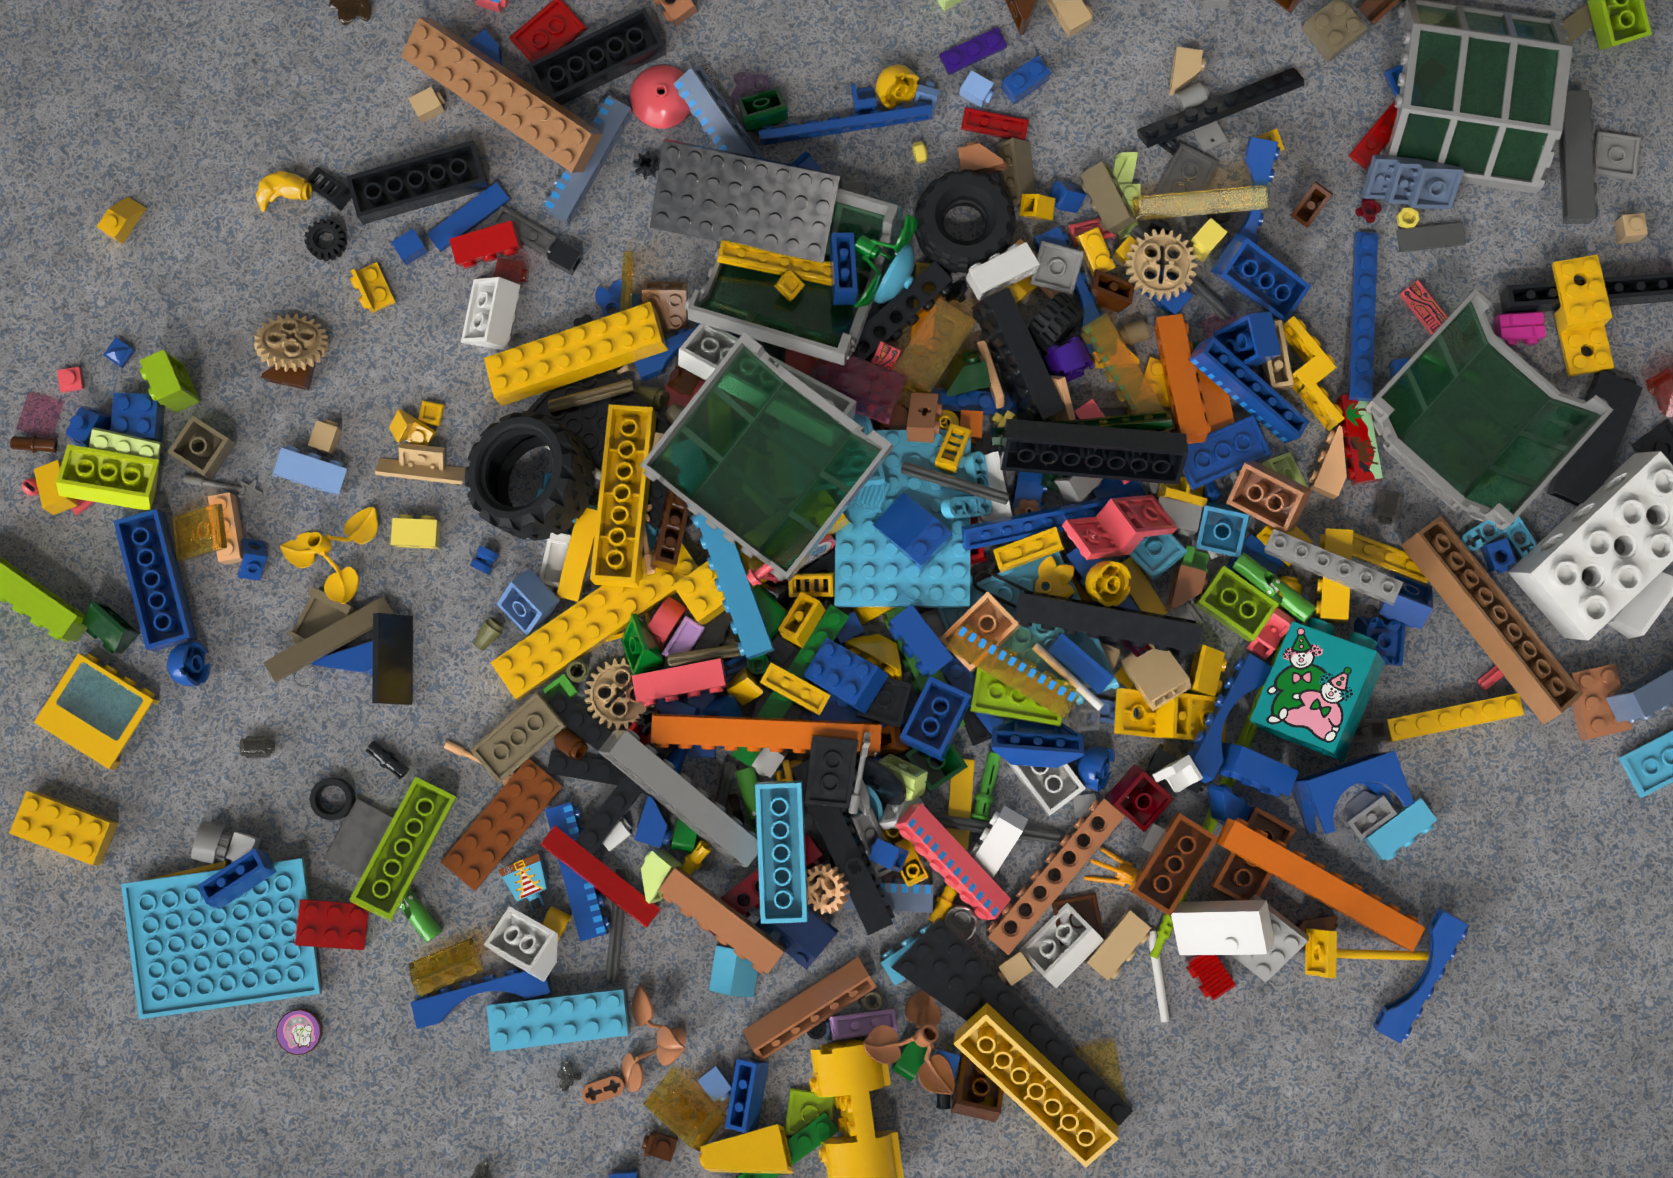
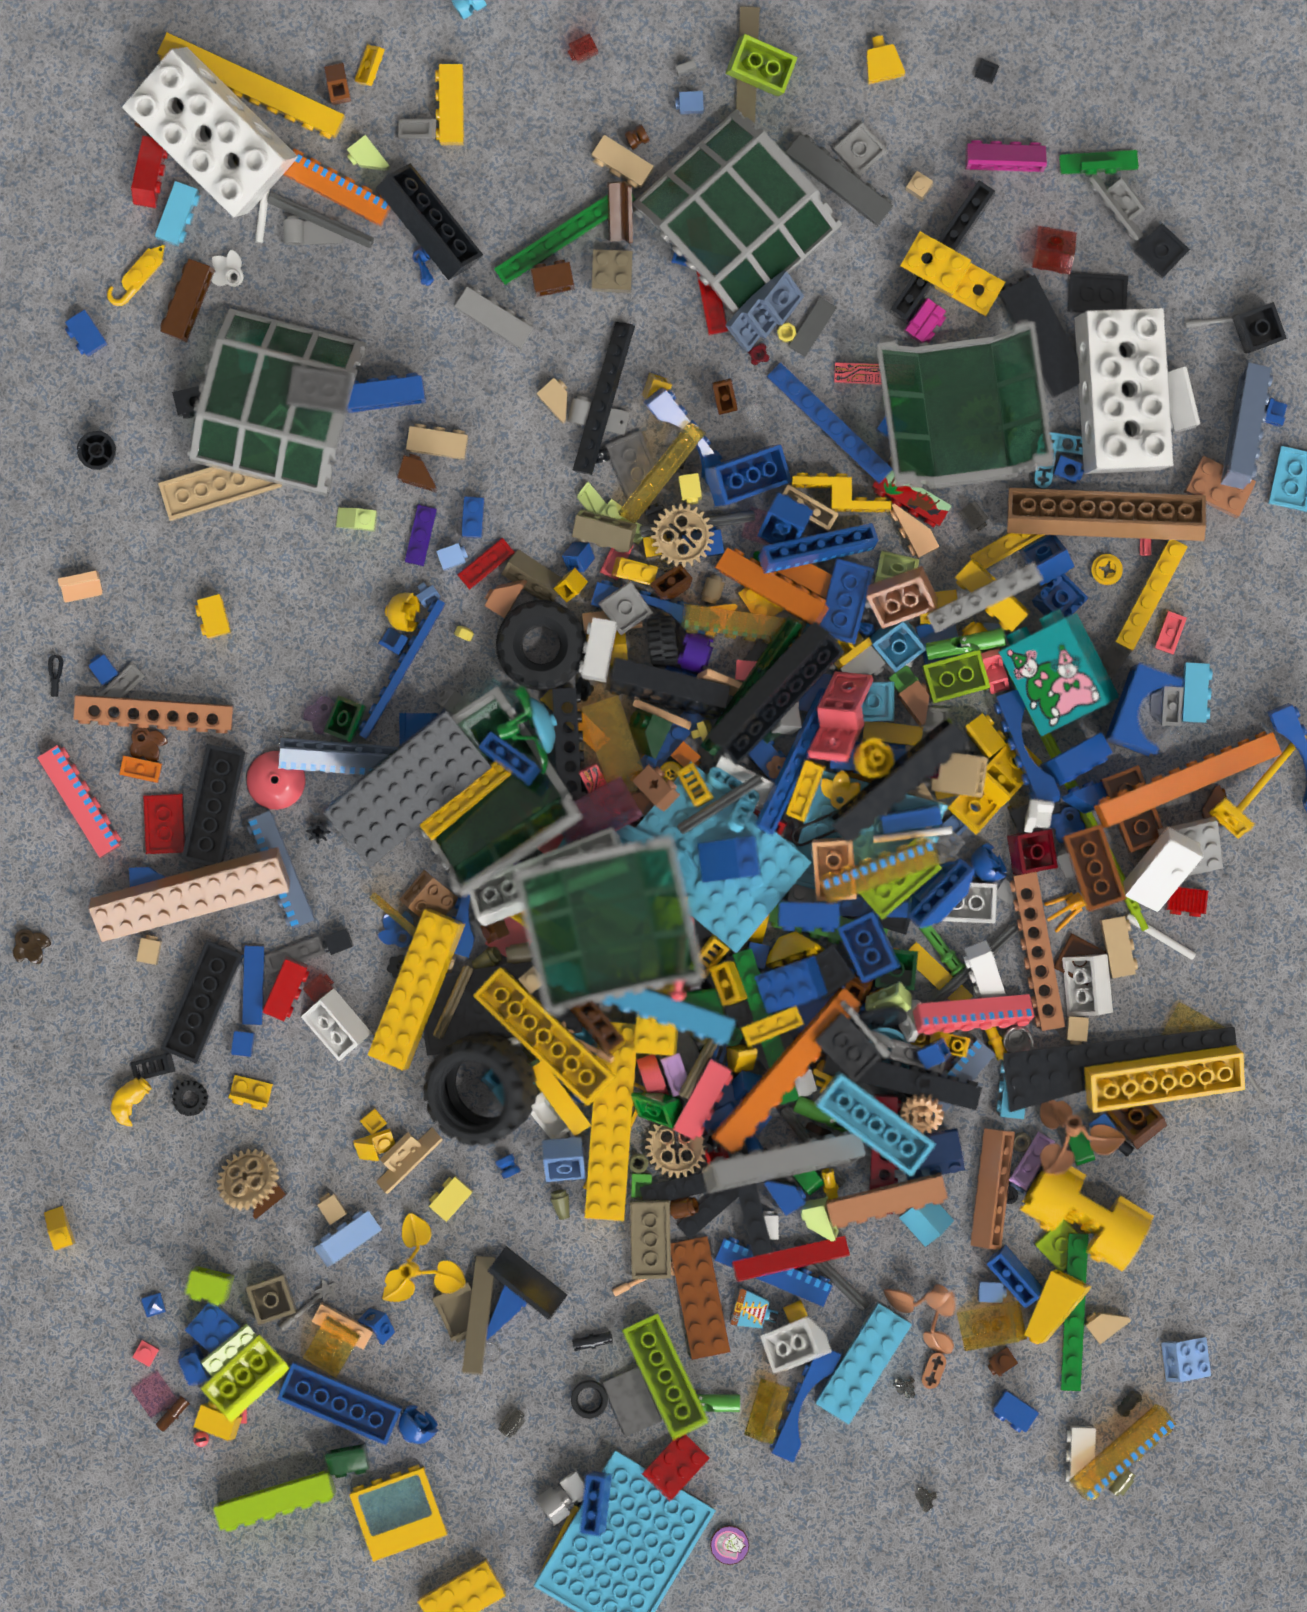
camera: 55 degrees left, 5 degrees up
(789, 285) = (489, 804): yellow tile -> none
(1184, 804) = (1066, 826): none -> blue plate
(1433, 763) = (1170, 632): none -> coral plate
(1449, 666) = (1115, 565): none -> yellow gear

